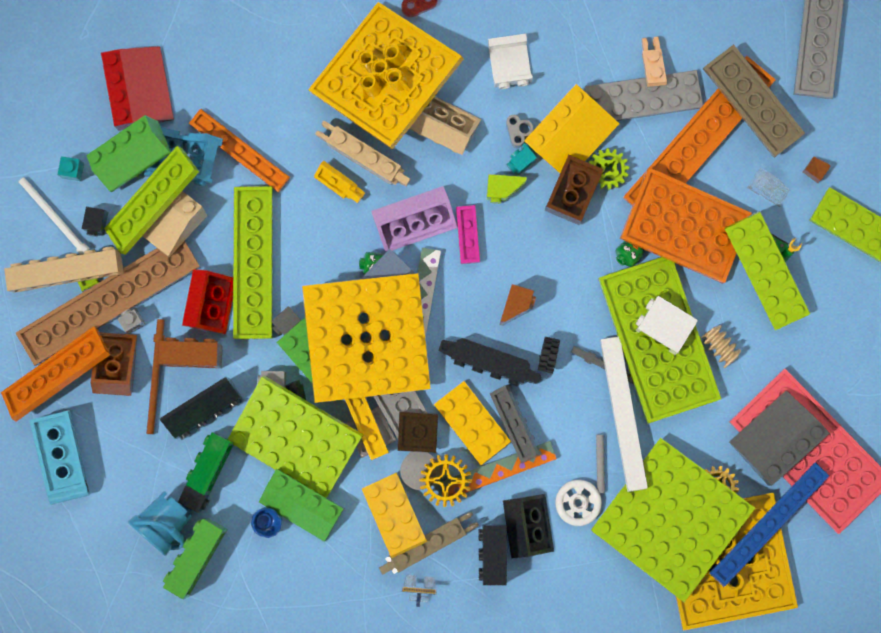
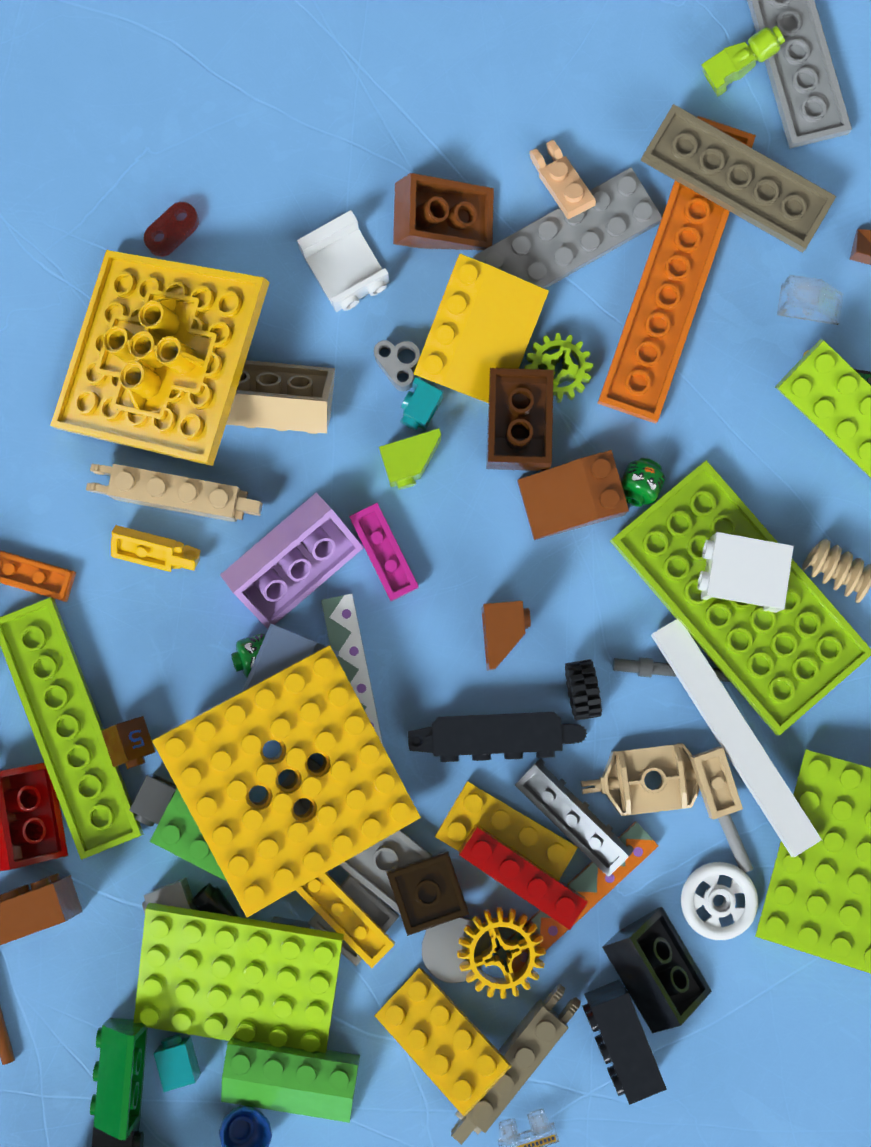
camera: 25 degrees left, 0 degrees up
(201, 408) = (71, 993): black slope -> none
(243, 469) = (176, 1062): none -> teal brick
(284, 284) = (128, 742): none -> reddish brown brick
(473, 442) = (523, 877): none -> red brick
(552, 416) = (625, 783): none -> tan plate
(577, 55) = (442, 214): none -> dark orange slope
(587, 244) = (573, 495): none -> dark orange slope
(602, 435) = (716, 782): none -> tan plate
(683, 225) = (708, 408): orange plate -> none
(784, 32) = (739, 59): none -> lime piece

